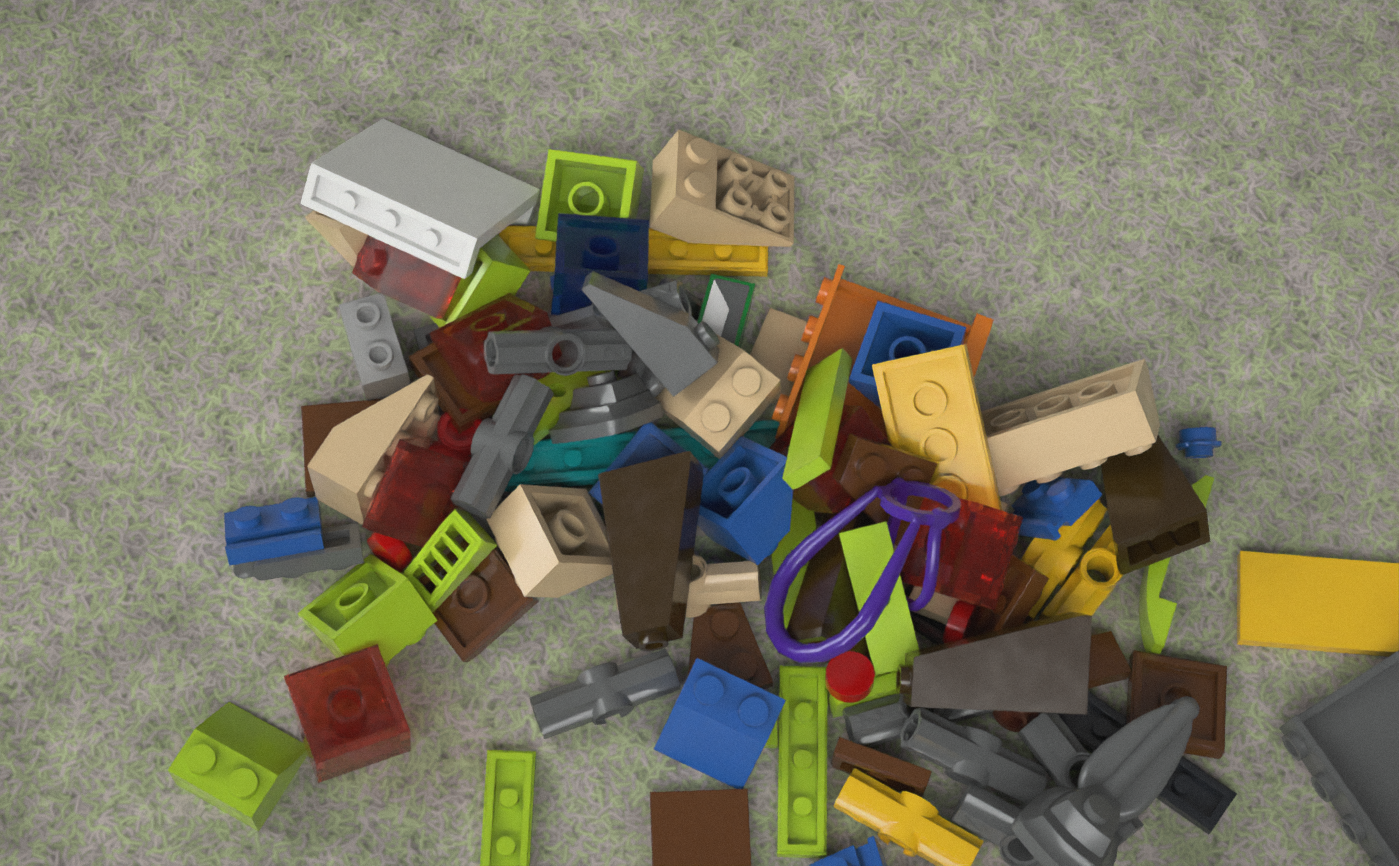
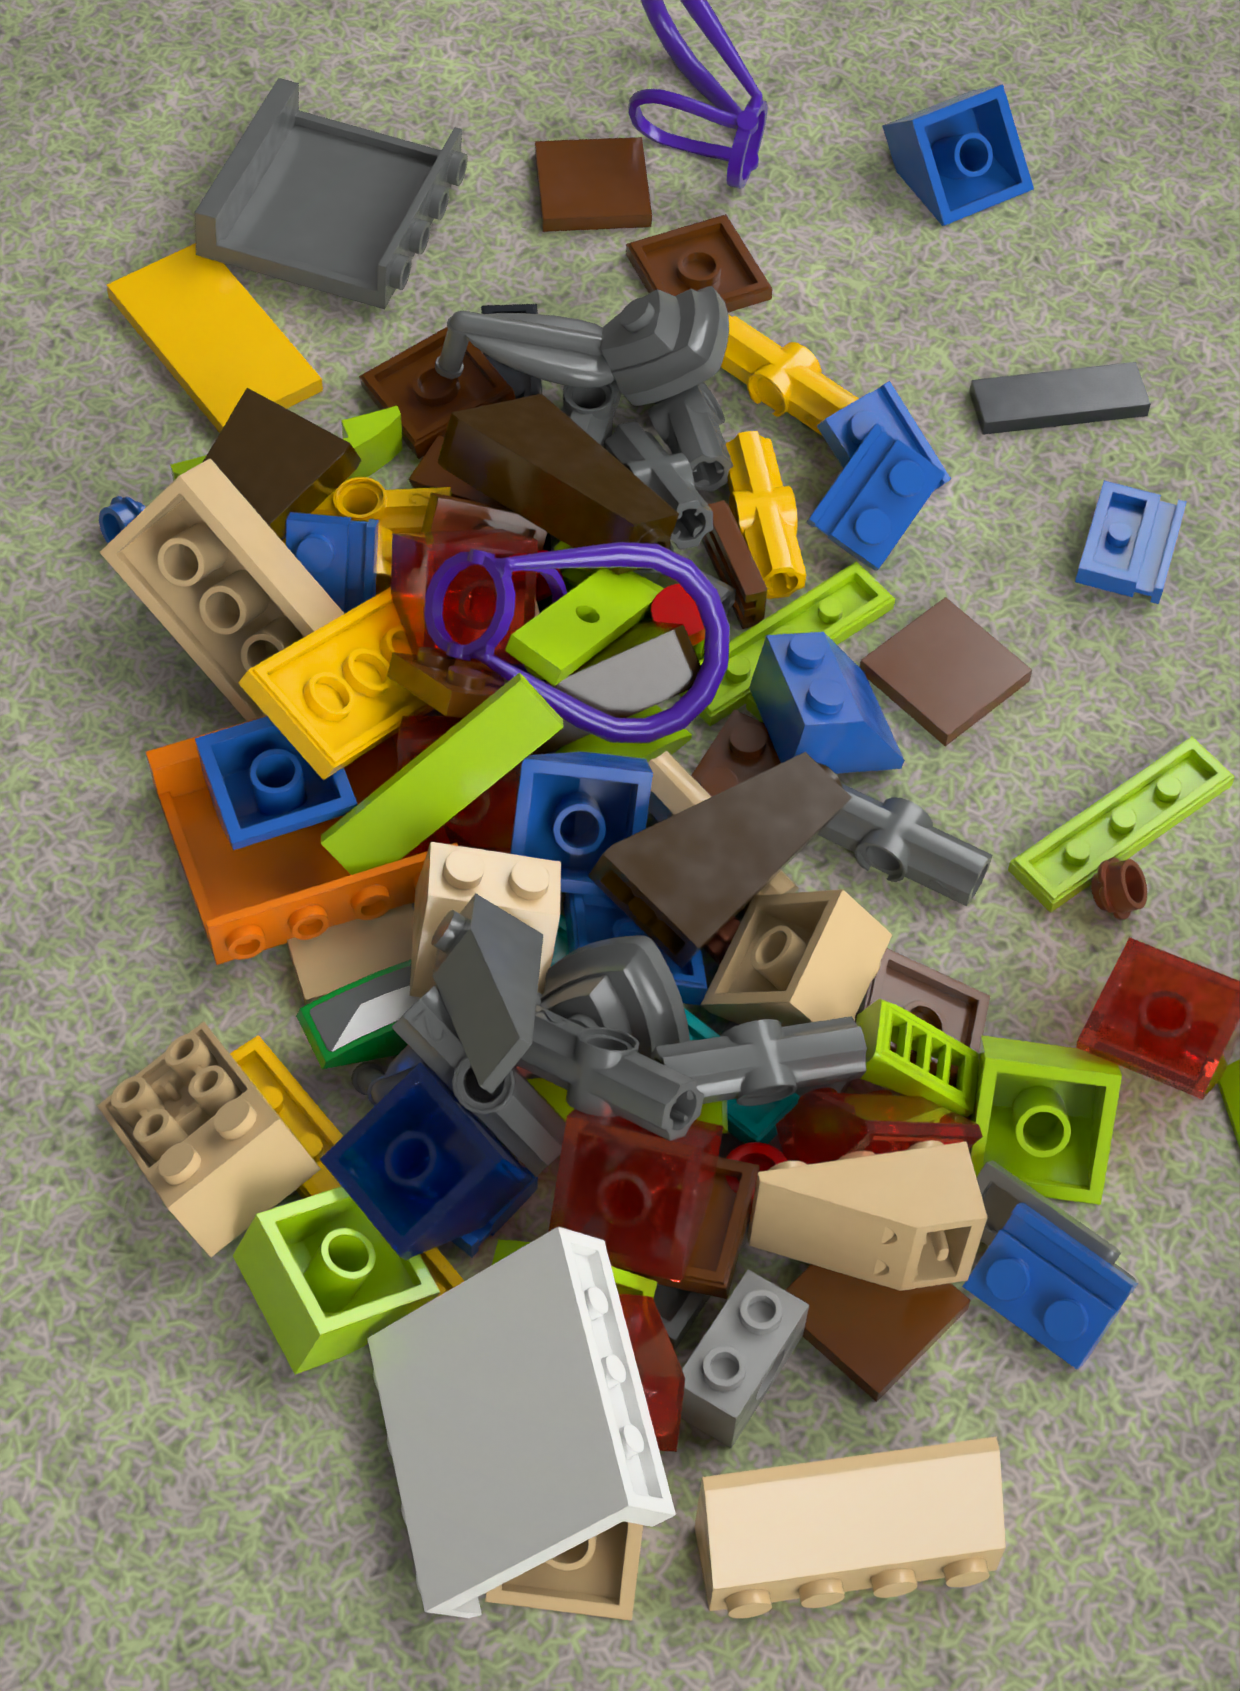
camera: 130 degrees left, 10 degrees down
(245, 324) = (851, 1526): none -> tan slope
(462, 795) = (1119, 887): none -> copper plate

